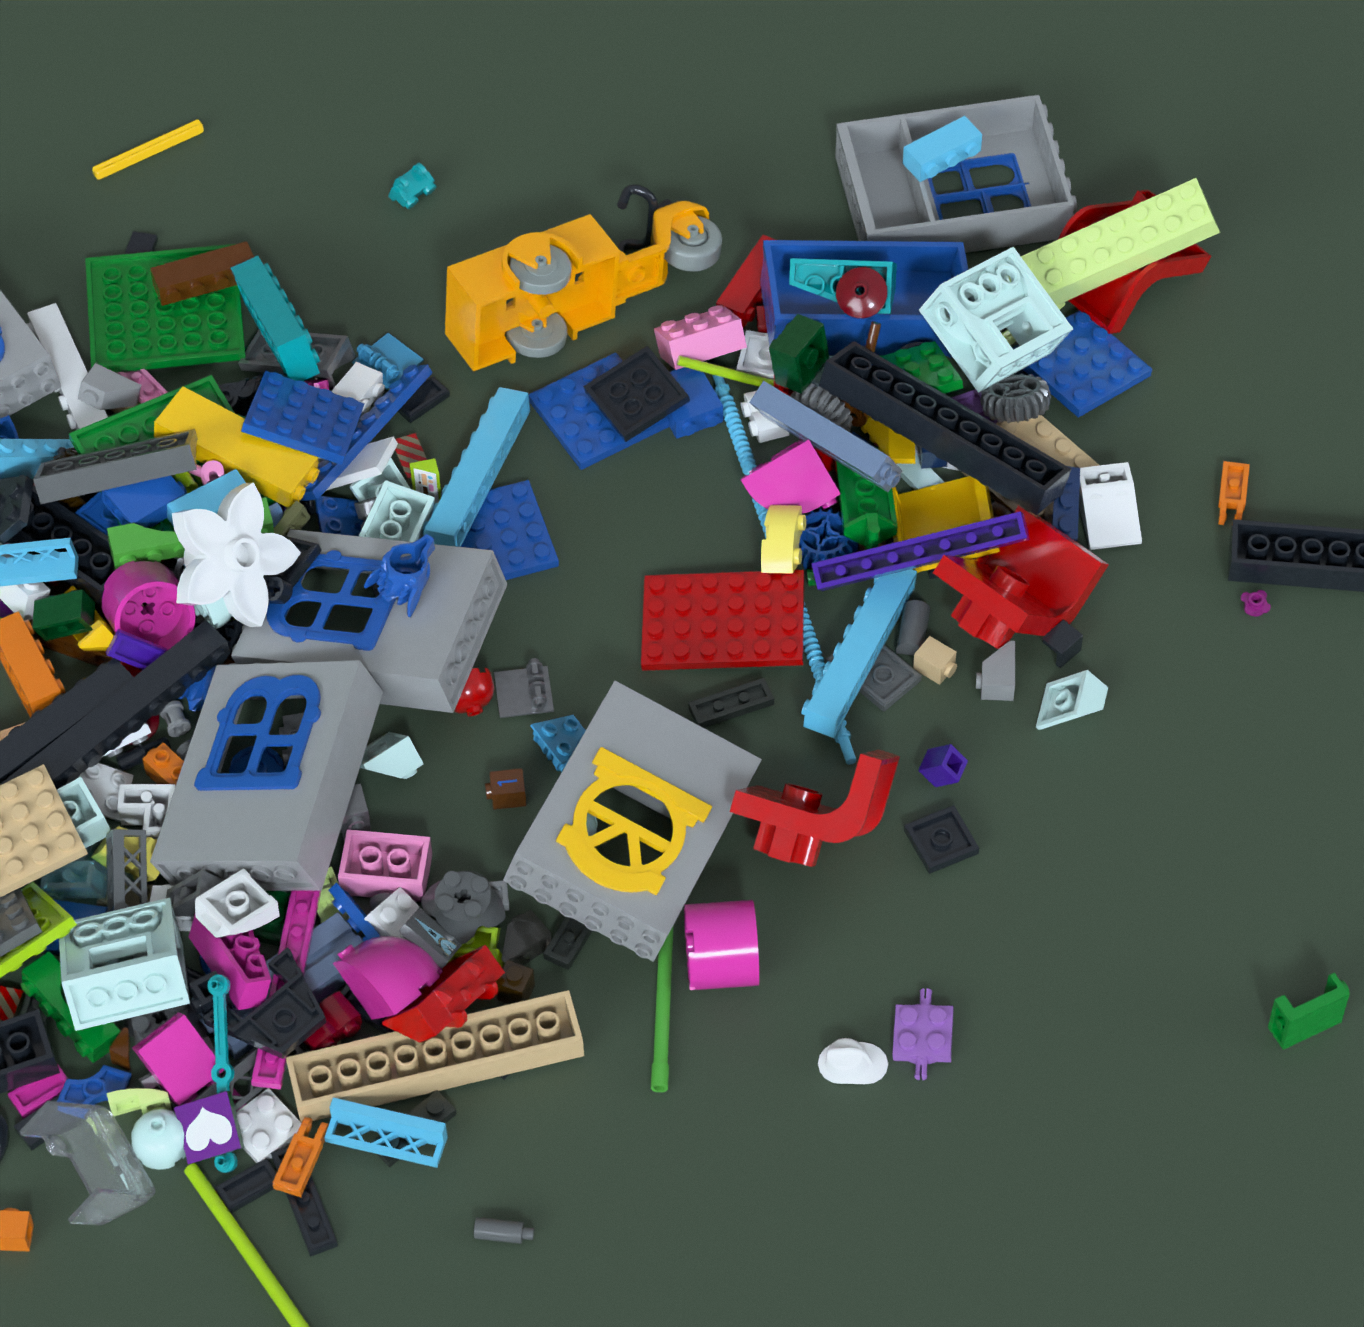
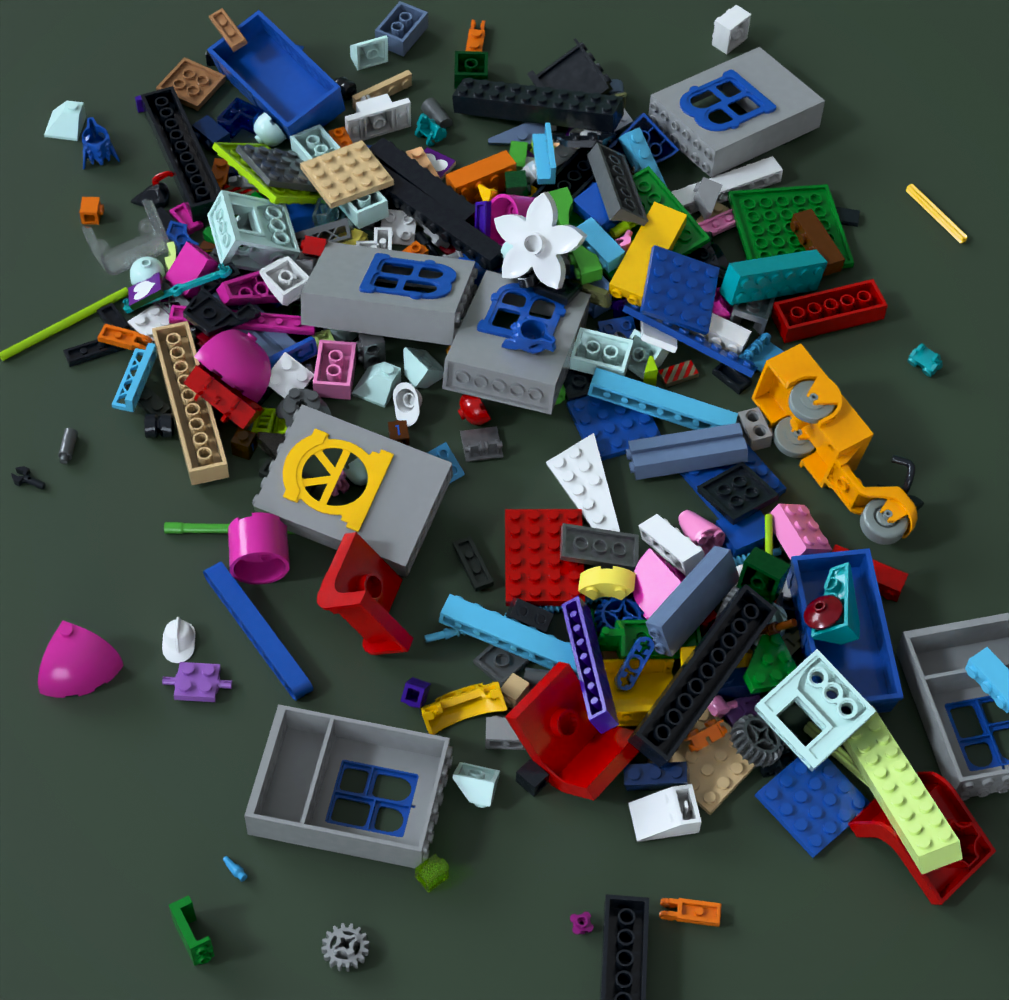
camera: 85 degrees right, 0 degrees up
(156, 880) = (313, 246): none -> red brick
(323, 274) = (829, 310): none -> red brick
(408, 810) = (378, 383): none -> light aqua slope
(430, 937) = (269, 387): dark grey tile -> none
(456, 775) = (407, 402): none -> white piece
(475, 1102) = (159, 425): none -> black wheel
(519, 374) = (755, 428): none -> light grey brick
(560, 447) = (687, 451): none -> sand blue brick
(560, 1286) = (19, 480): none -> black bar
(595, 571) = (584, 480): none -> white wing
(692, 445) = (701, 531): none -> bright pink cone
(717, 469) = (671, 544): none -> white brick
(722, 547) = (599, 547): none -> flat silver plate
(825, 632) = (529, 614): none -> black brick
(838, 960) = (258, 631): none -> blue beam
(897, 504) = (632, 679): none -> blue beam
(904, 1182) = (76, 662): none -> dark pink brick
(941, 839) = (356, 694): black plate -> none
(949, 710) = (462, 704): none -> yellow windscreen
(1076, 894) = (303, 780): none -> light grey panel
(1201, 753) = (432, 872): none -> clear neon green brick
(1206, 976) = (235, 869): none -> dark azure piece
(1309, 847) = (350, 939): none -> light grey gear

